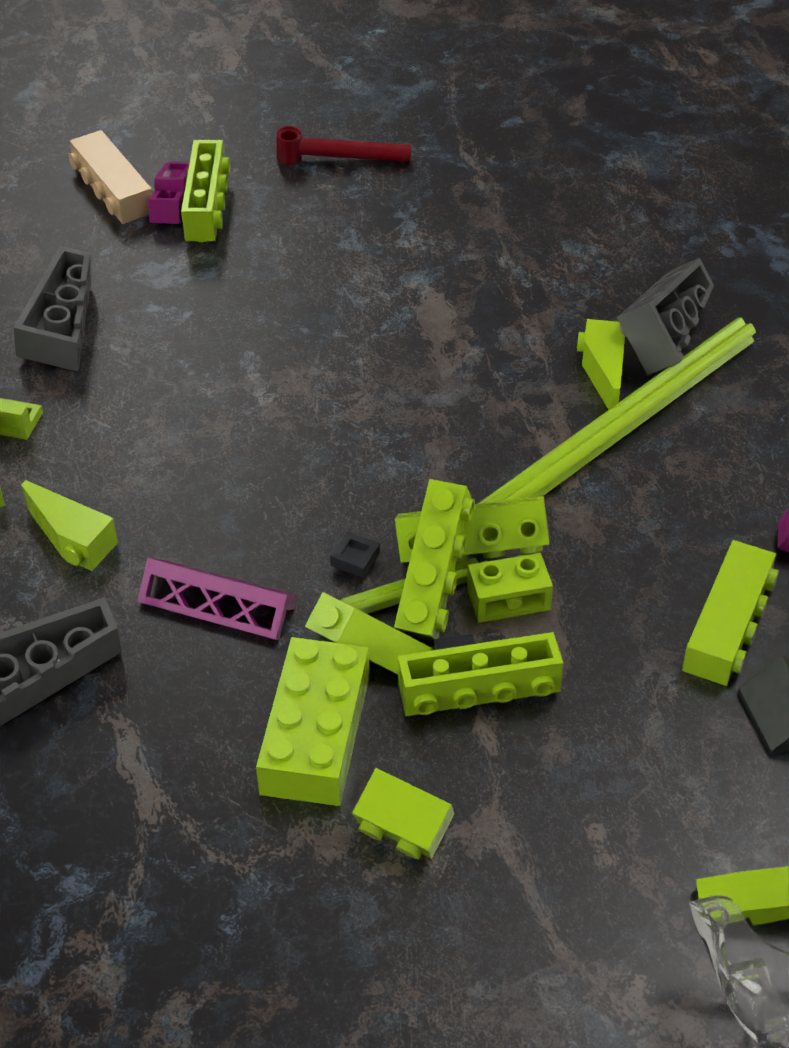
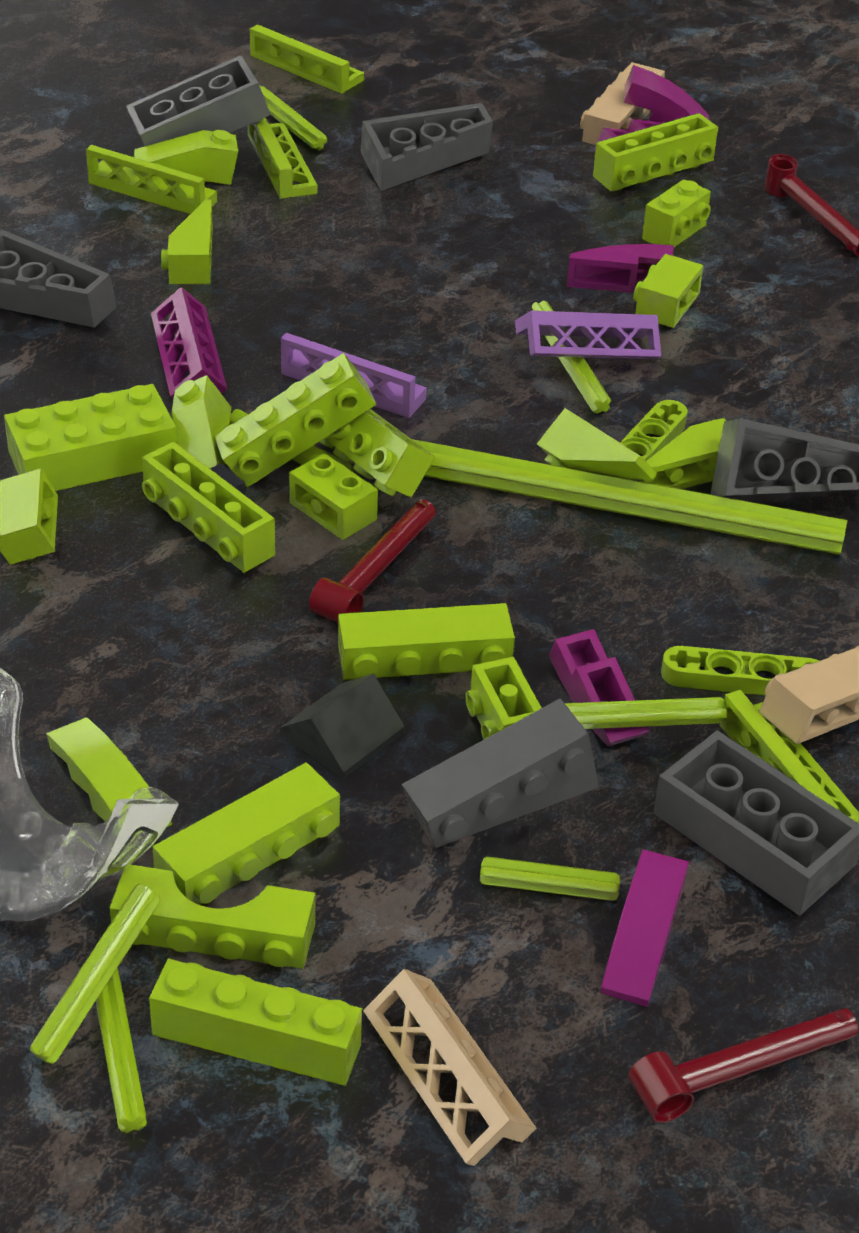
camera: 55 degrees right, 5 degrees down
(141, 152) = (659, 96): none -> magenta slope
(295, 220) = (676, 214): none -> lime brick
(337, 281) = (615, 266): none -> magenta slope
(349, 507) = (390, 388): none -> medium lavender fence
(394, 271) = (669, 289): none -> lime brick
(413, 336) = (593, 327): none -> medium lavender fence
(419, 366) = (580, 373): none -> lime axle
(556, 381) = (652, 423): none -> lime beam
(569, 409) = (582, 447): none -> lime slope
(640, 643) = (346, 596): none -> dark red piece

